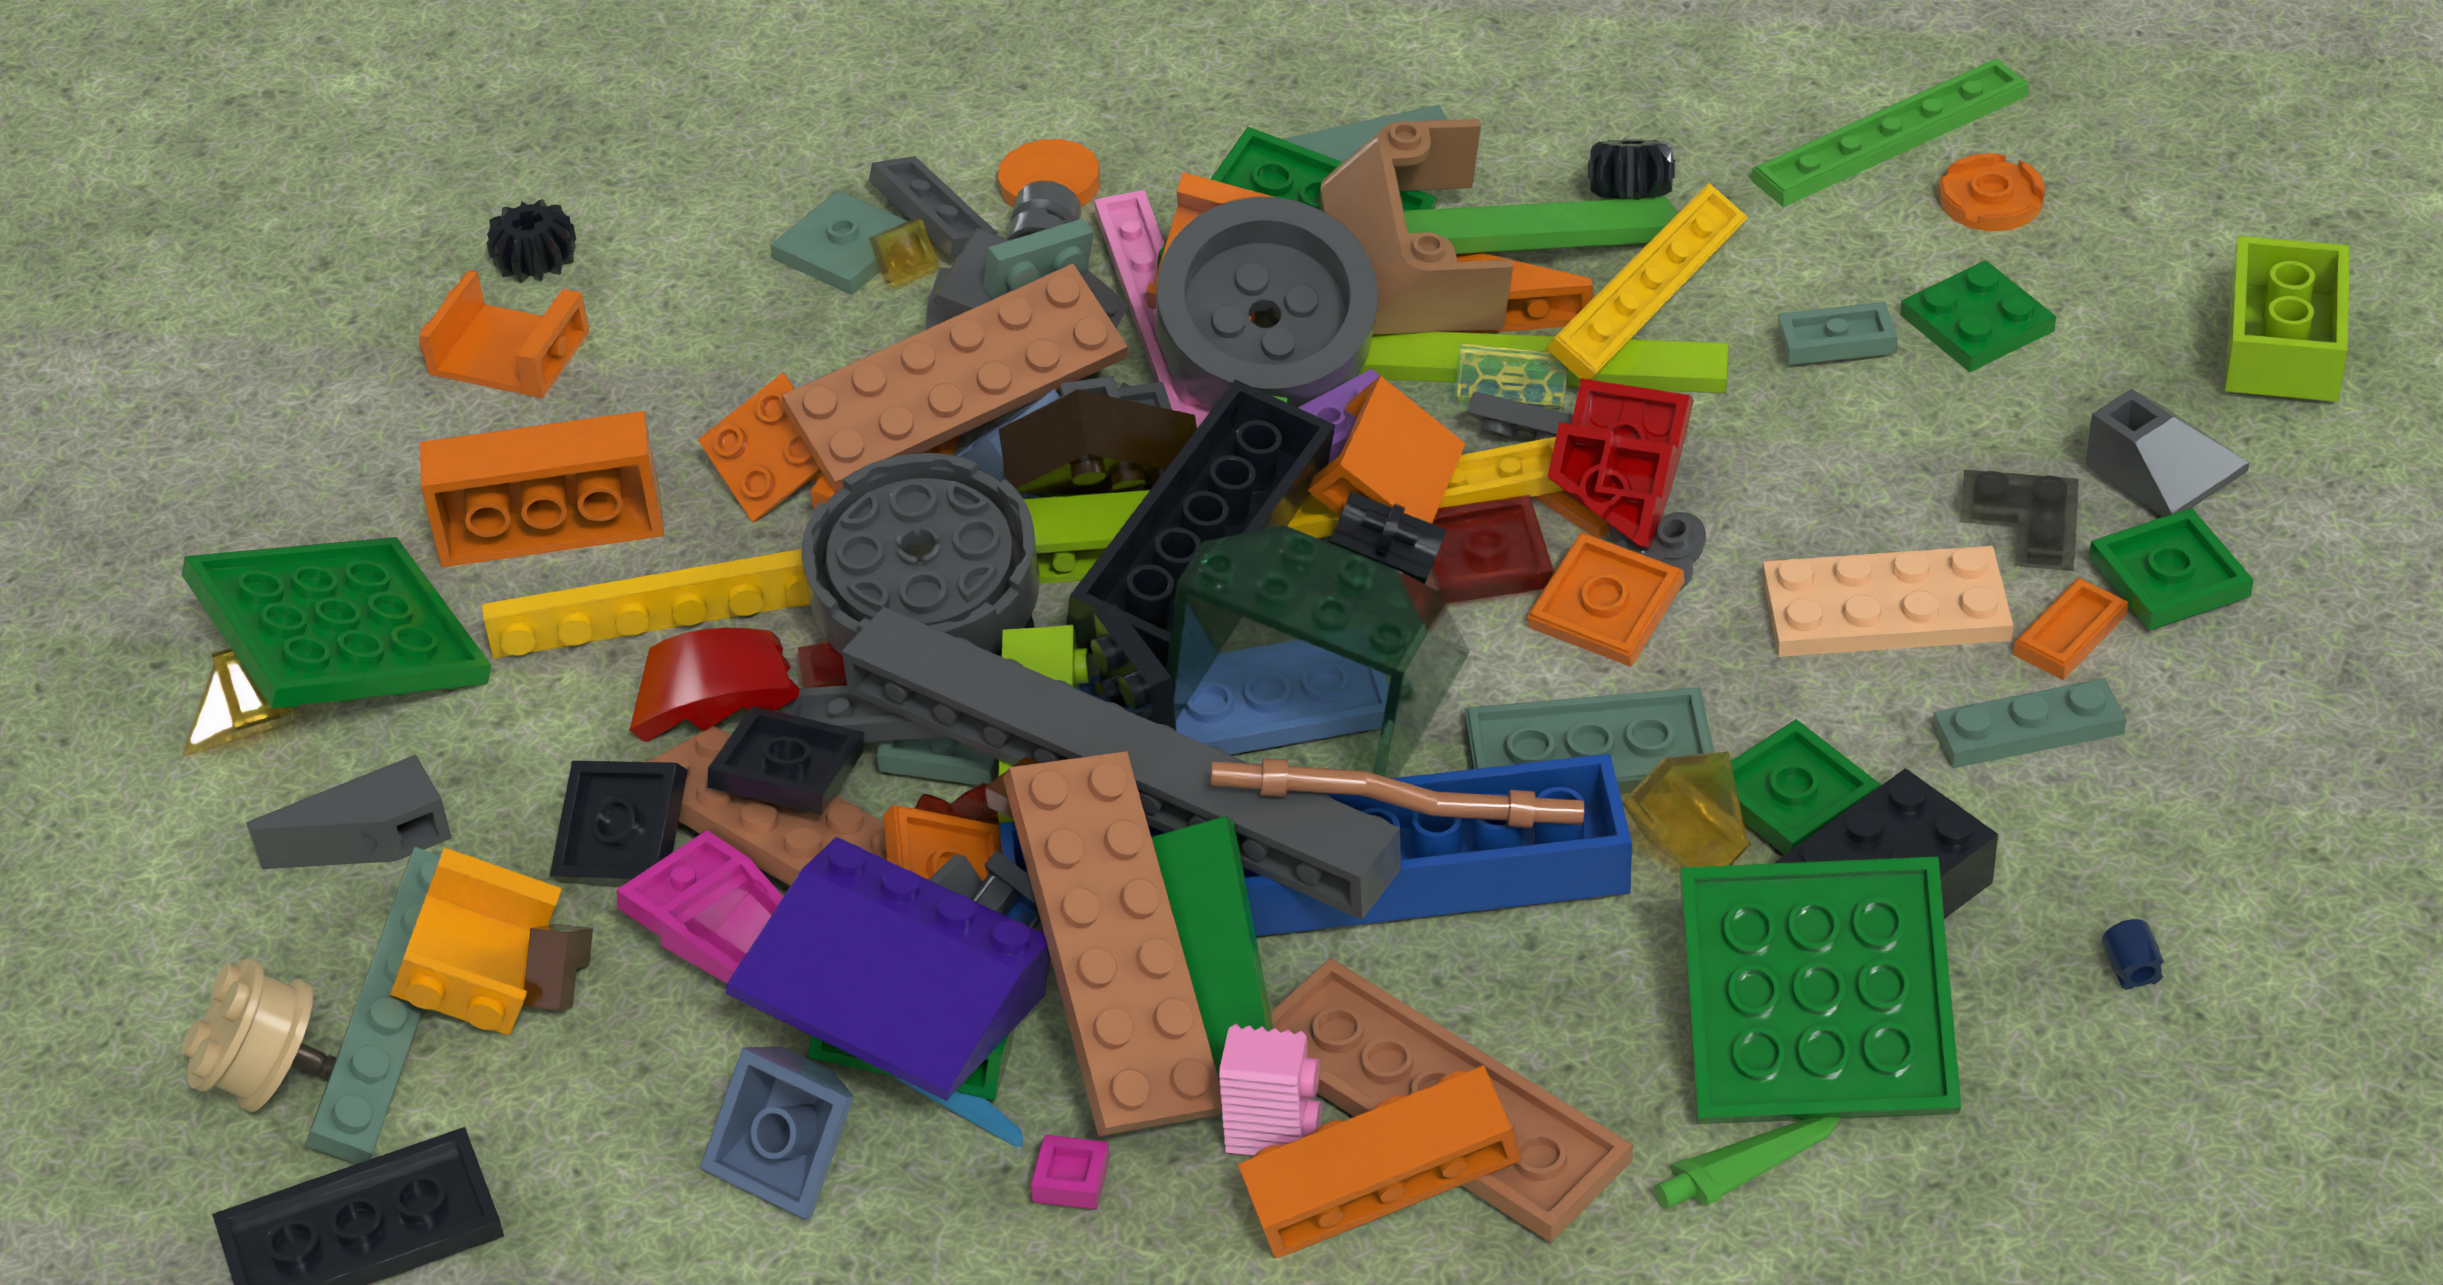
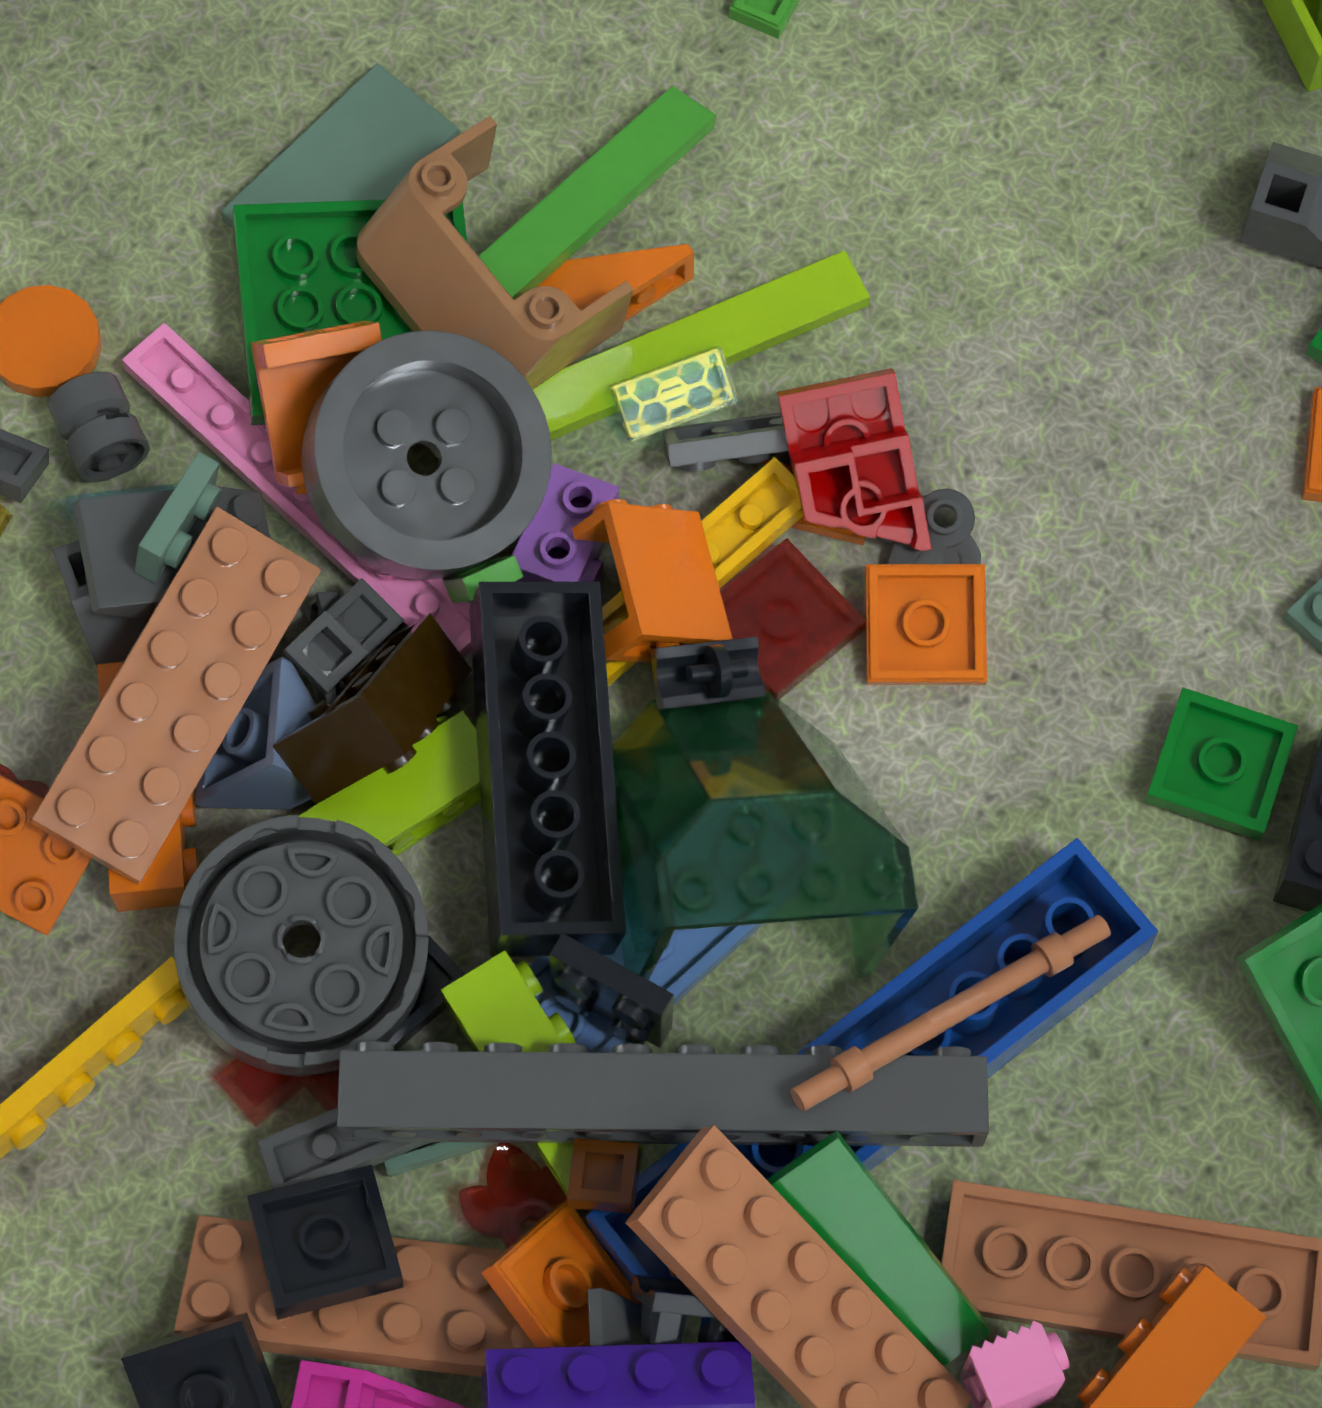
camera: 35 degrees left, 25 degrees up
(710, 677) = (165, 1166): red slope -> none
(1630, 727) = (1013, 801): sand green tile -> none
(1631, 168) = (628, 73): black gear -> none
(1646, 283) = (733, 216): yellow tile -> none
(1691, 810) = (1171, 849): clear yellow slope -> none
(1837, 333) = (935, 189): sand green plate -> none
(1886, 601) = (1164, 495): light nougat plate -> none
(1977, 316) = (1041, 101): green plate -> none
(2035, 504) = (1227, 314): clear smoke plate -> none

